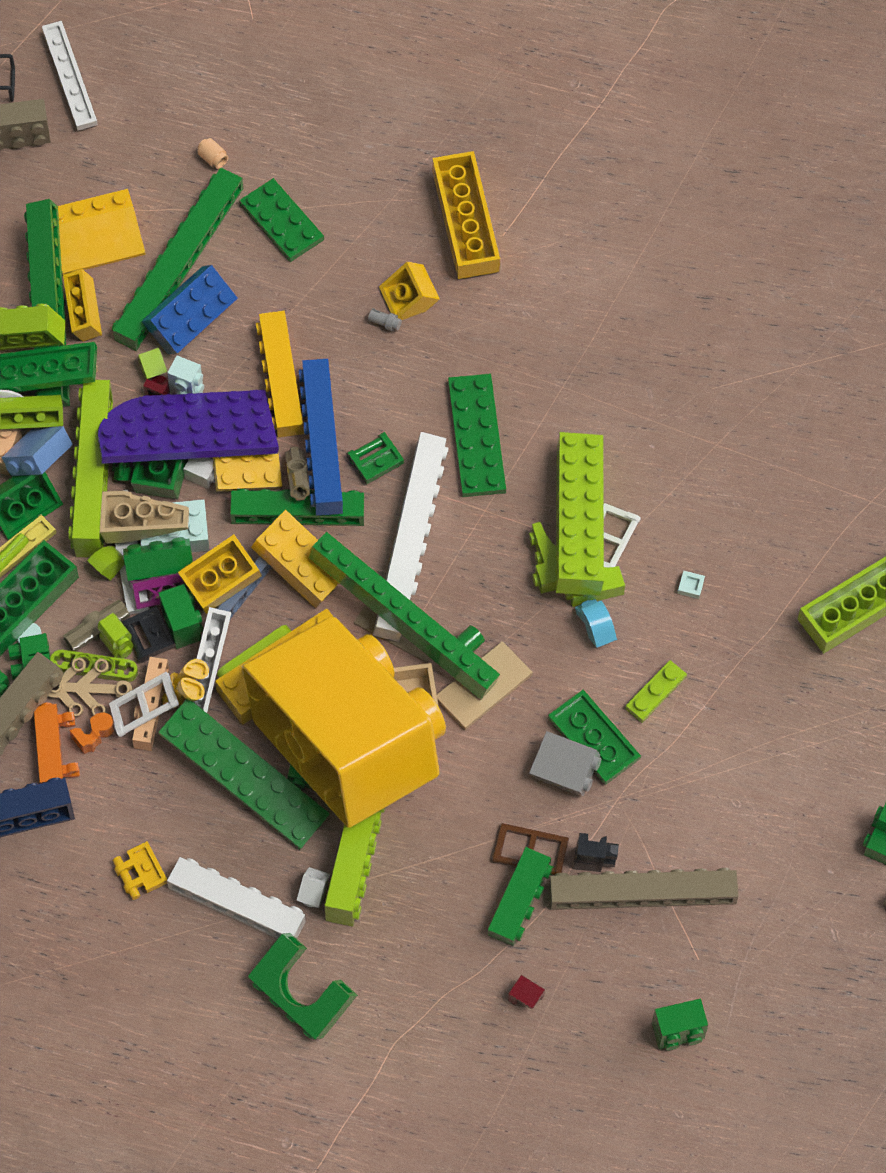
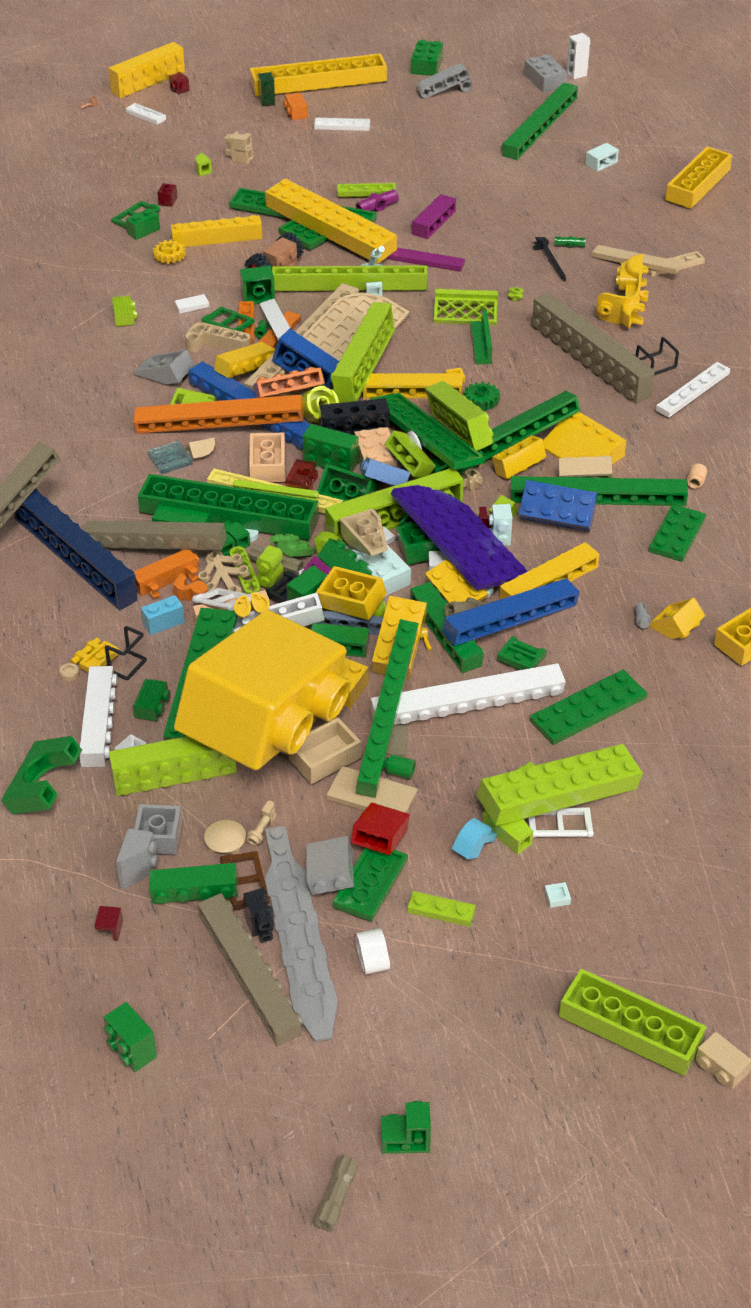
camera: 65 degrees right, 20 degrees down
(93, 598) = (291, 546): none -> bright green plate
(120, 776) = (162, 615): none -> medium azure brick
(143, 252) = (586, 467): none -> tan brick
(147, 906) = (69, 672): none -> tan tile
(181, 840) = (128, 650): none -> black piece
(243, 838) = (151, 700): none -> green brick
(258, 616) = (352, 638): none -> green brick
(434, 902) = (164, 822): none -> light grey brick
(462, 935) = (136, 857): none -> light grey slope
(465, 793) = (269, 815): none -> tan hinge
(467, 844) = (225, 836): none -> tan dish
(543, 697) = (380, 828): none -> red brick
(634, 832) = (300, 940): none -> light grey plate
(681, 773) = (372, 951): none -> white piece

